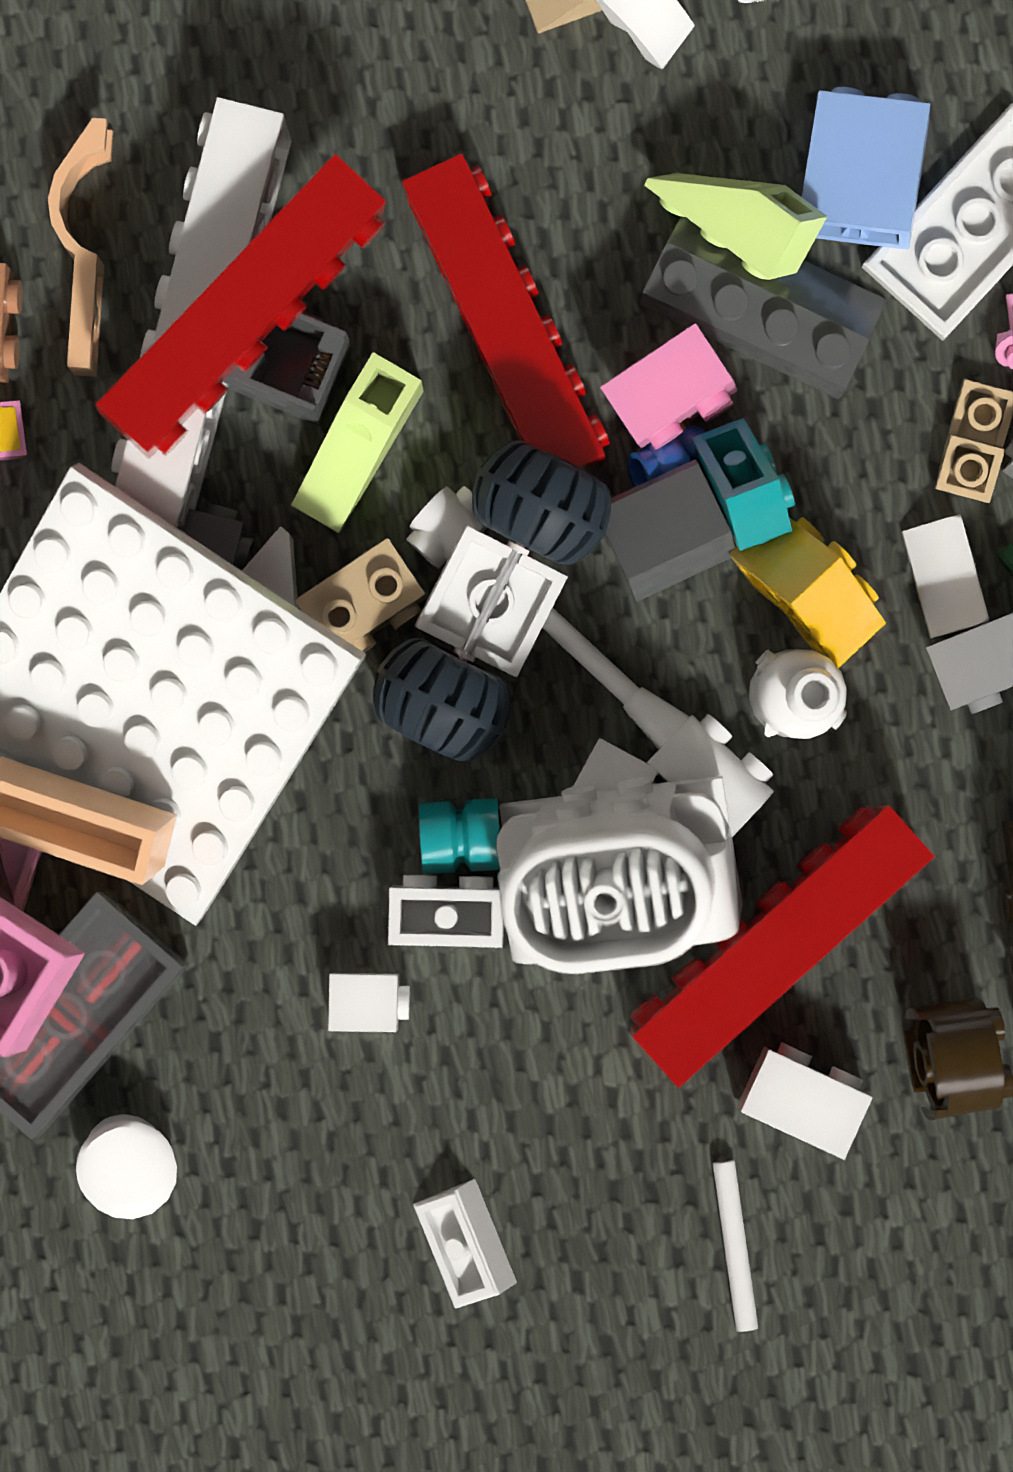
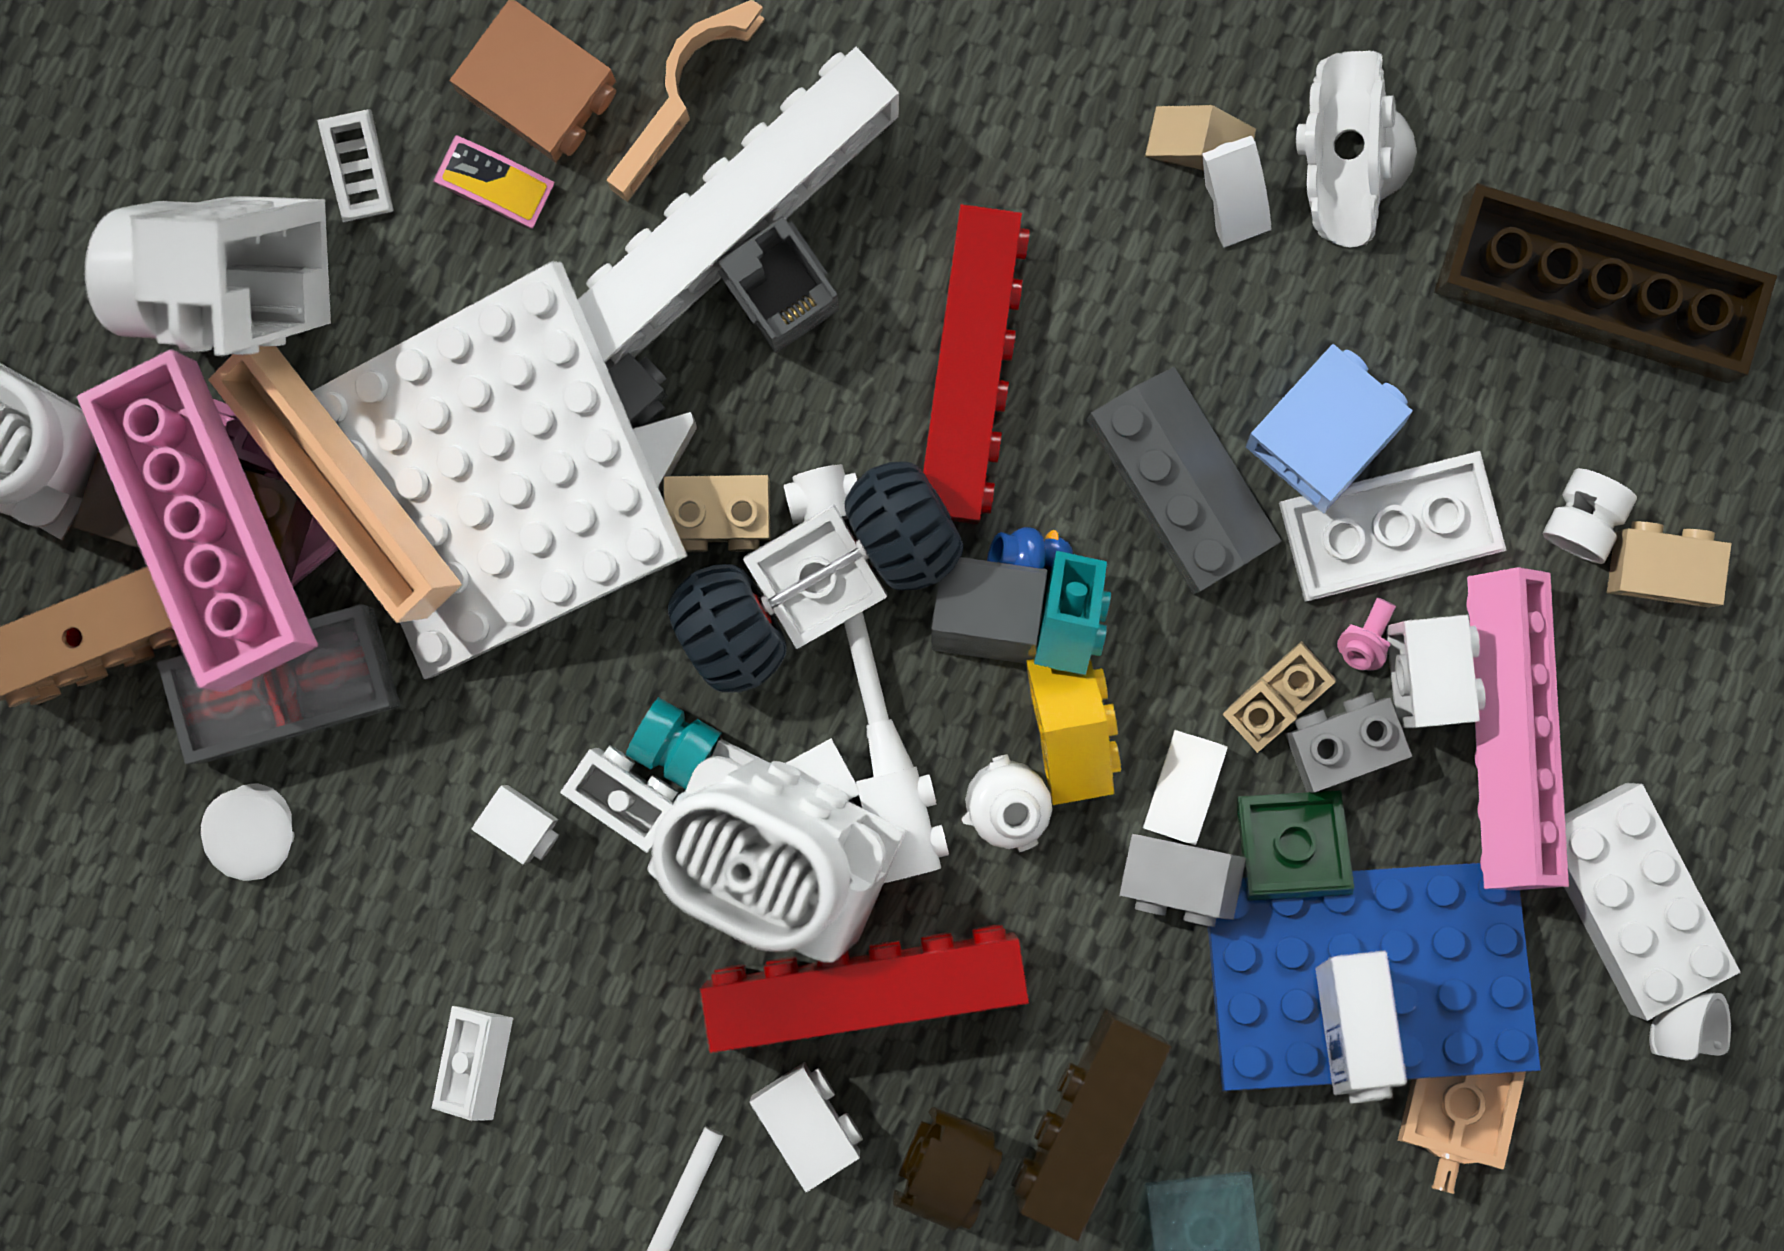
camera: 25 degrees right, 0 degrees up
(243, 307) = (767, 223): red brick -> none
(358, 441) = (794, 385): yellowish green slope -> none
(669, 386) = (1063, 500): bright pink brick -> none
(754, 220) = (1215, 413): yellowish green slope -> none

